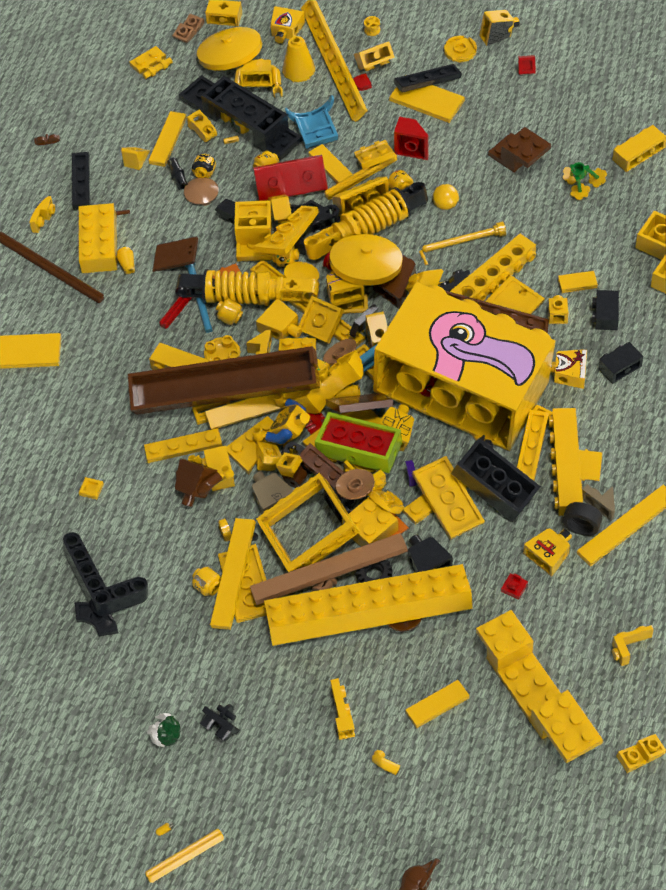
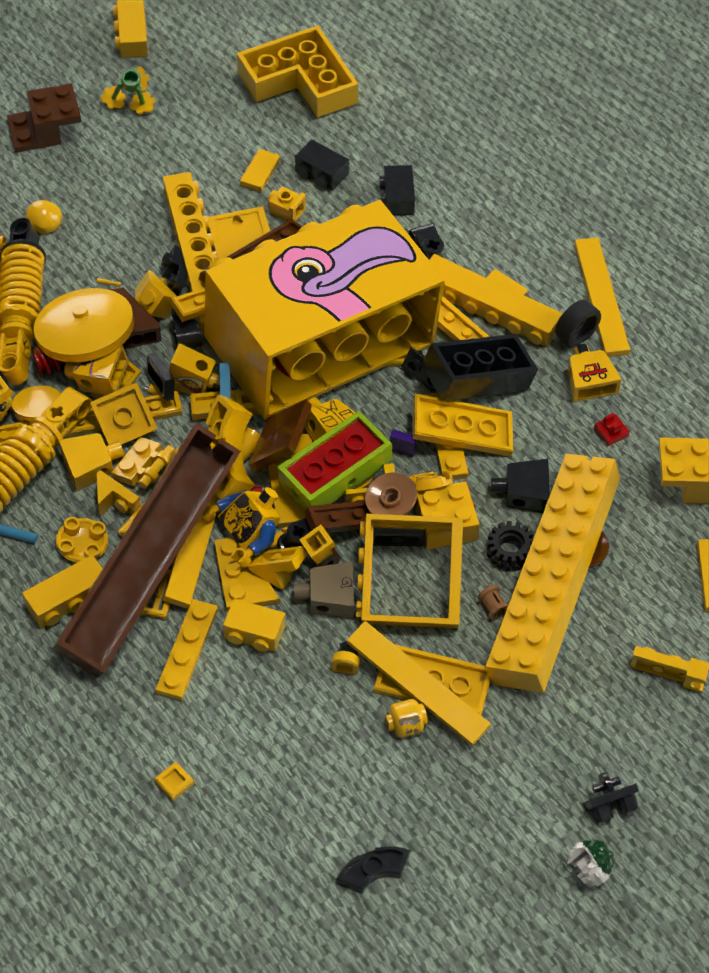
camera: 65 degrees left, 0 degrees up
(101, 598) = (321, 835): black beam -> none
(198, 479) = (259, 653): reddish brown torso -> none
(229, 311) = (31, 500): yellow head -> none
(328, 568) = (481, 585): medium nougat tile -> none
(338, 350) = (180, 419): medium nougat dish -> none
(497, 230) = (132, 195): yellow piece -> none
(588, 403) = (427, 240): none -> black piece
(603, 503) = (564, 295): dark tan slope -> none

